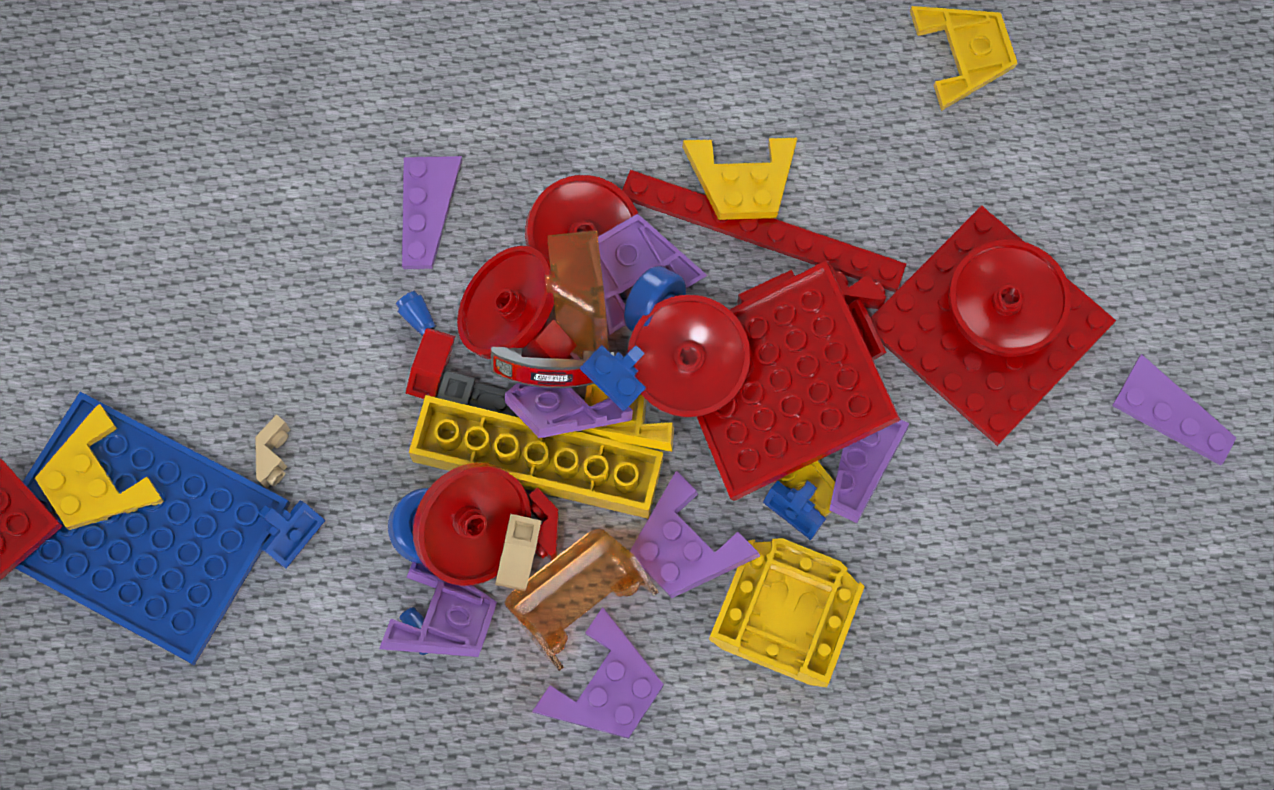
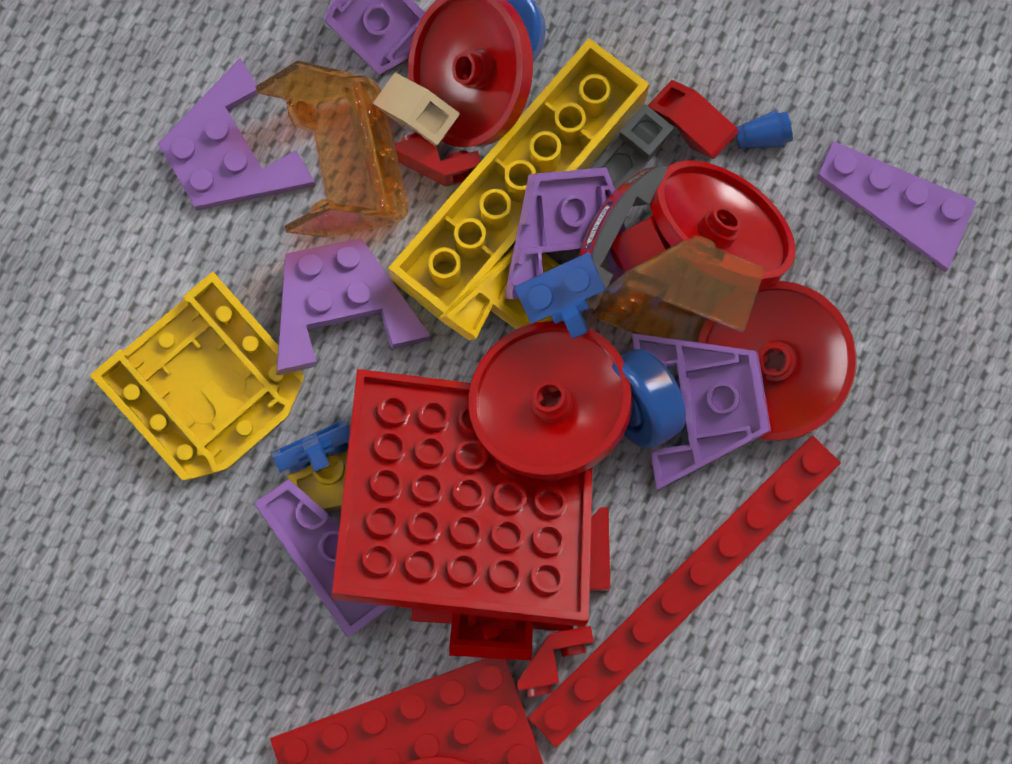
camera: 115 degrees right, 5 degrees up
(742, 188) = (749, 591): yellow wing -> none

